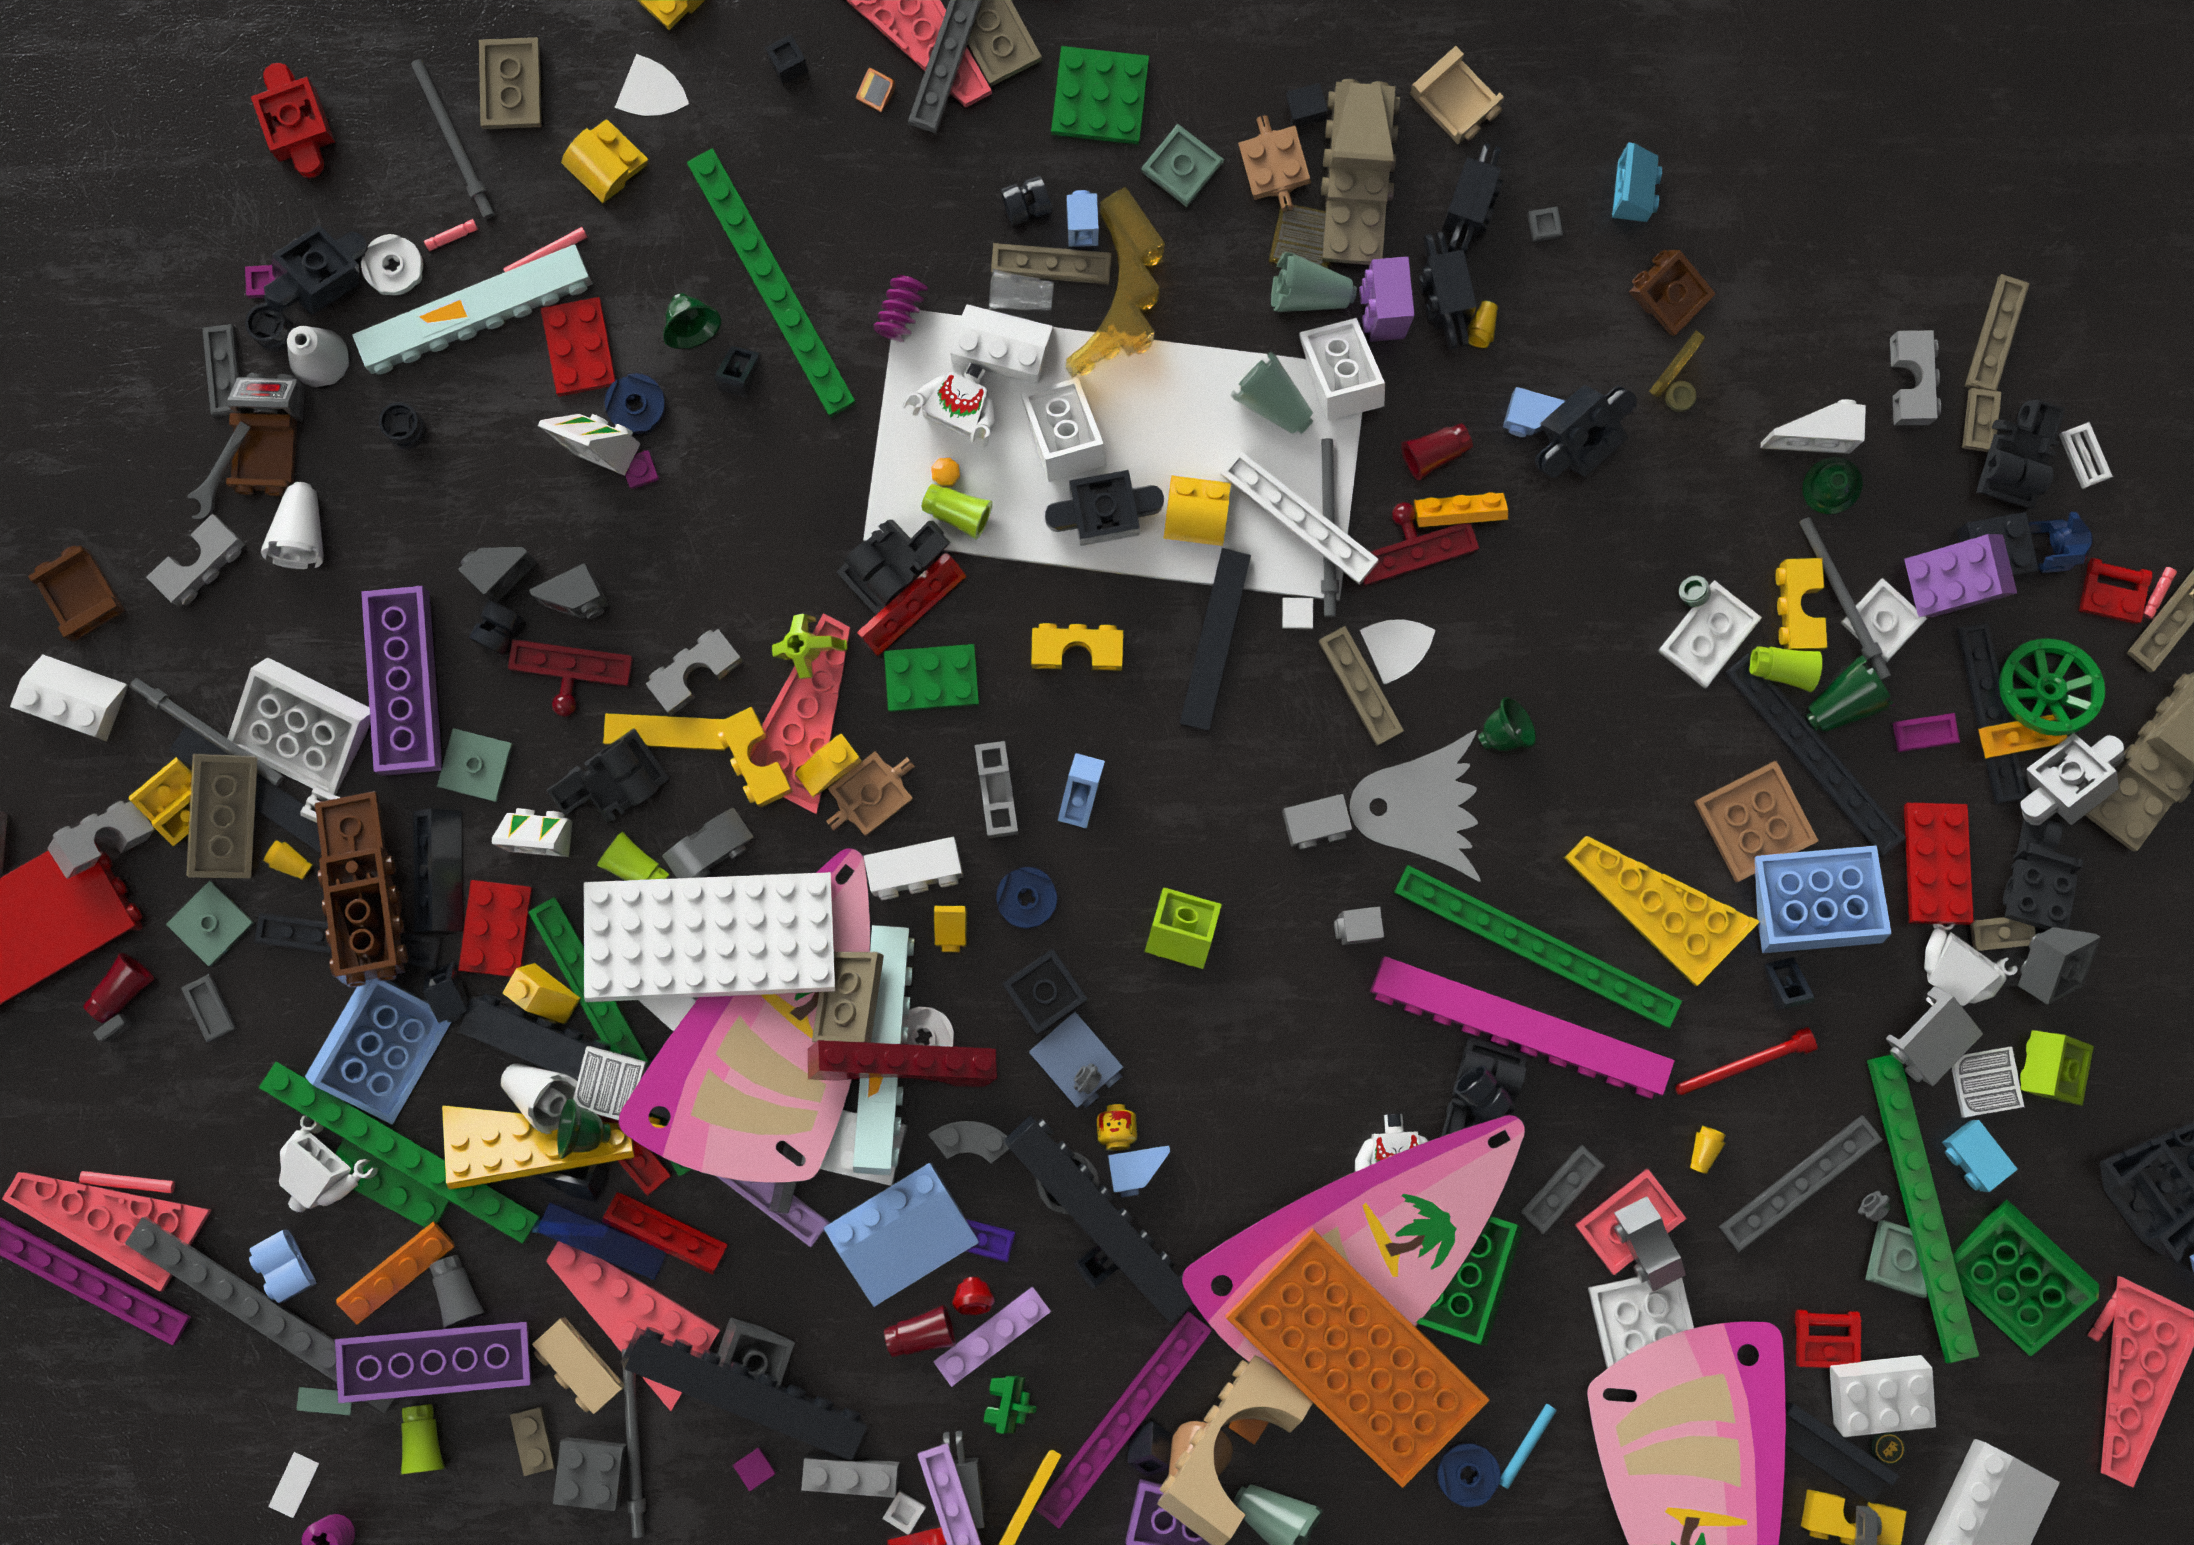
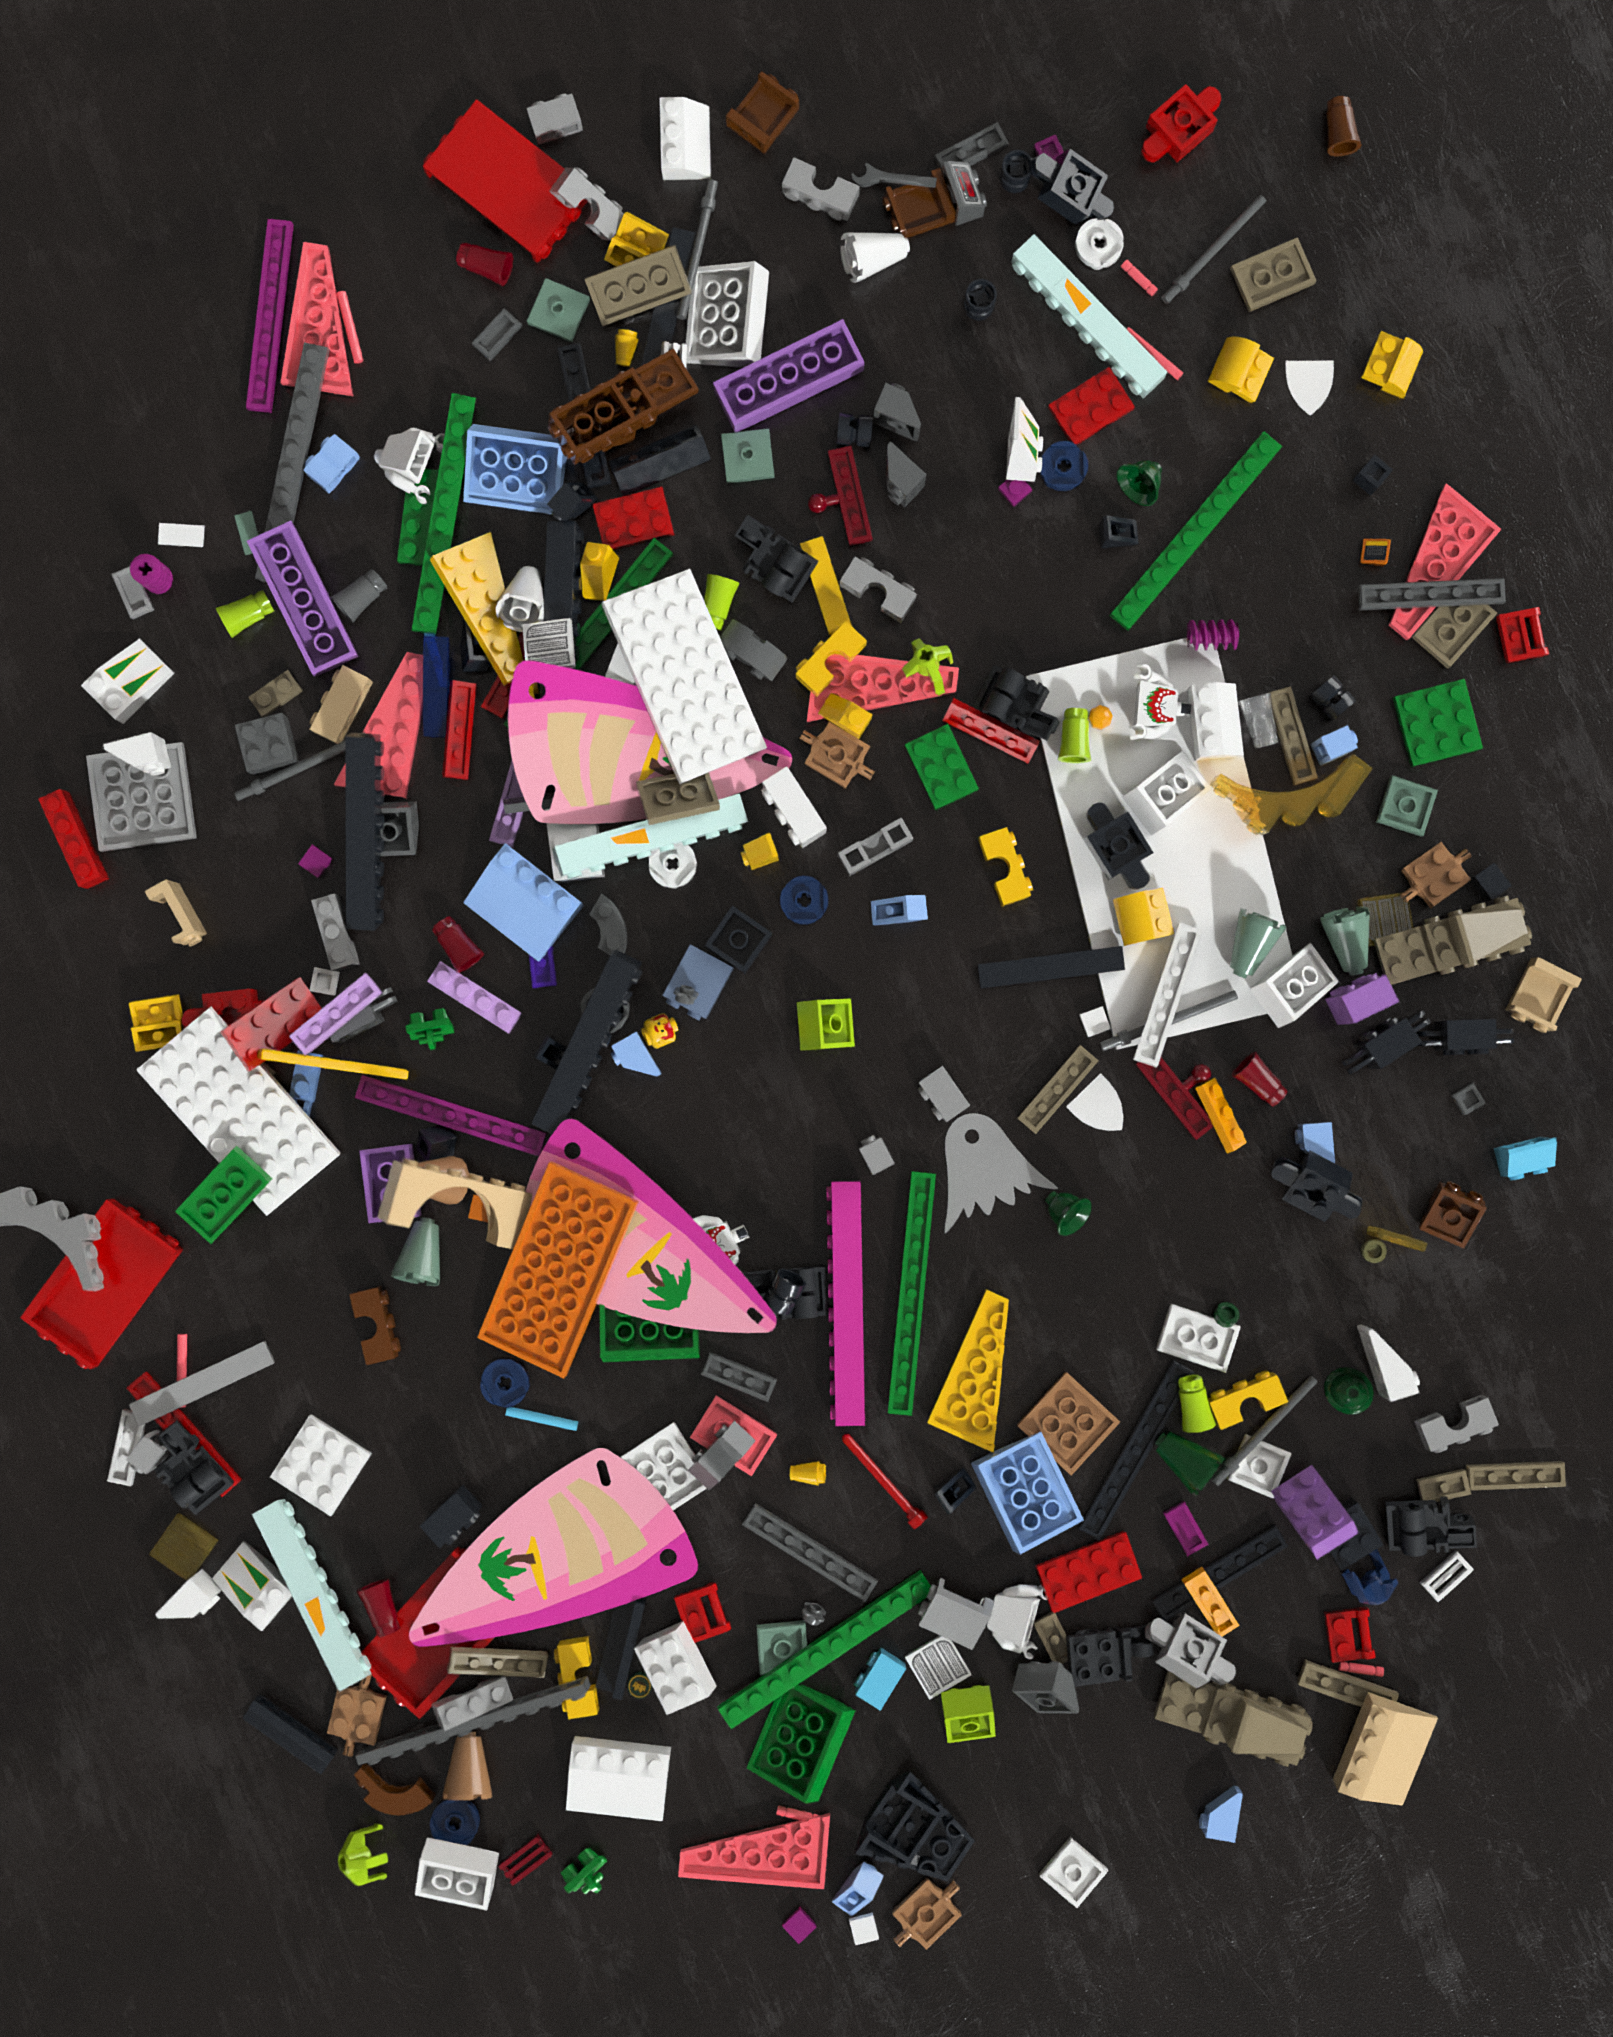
camera: 75 degrees right, 5 degrees up
(113, 1028) = (455, 271): dark grey tile -> none
(317, 355) = (1009, 215): white cone -> none
(395, 1273) = (357, 546): orange plate -> none
(534, 833) = (713, 518): white slope -> none
(579, 1130) = (507, 637): dark green hat -> none
(877, 1060) = (638, 831): dark red arch -> none
(973, 1297) = (497, 972): red cone -> none
(1482, 326) = (1369, 1080): yellow cone -> none
(2054, 685) = (1258, 1613): green wheel -> none

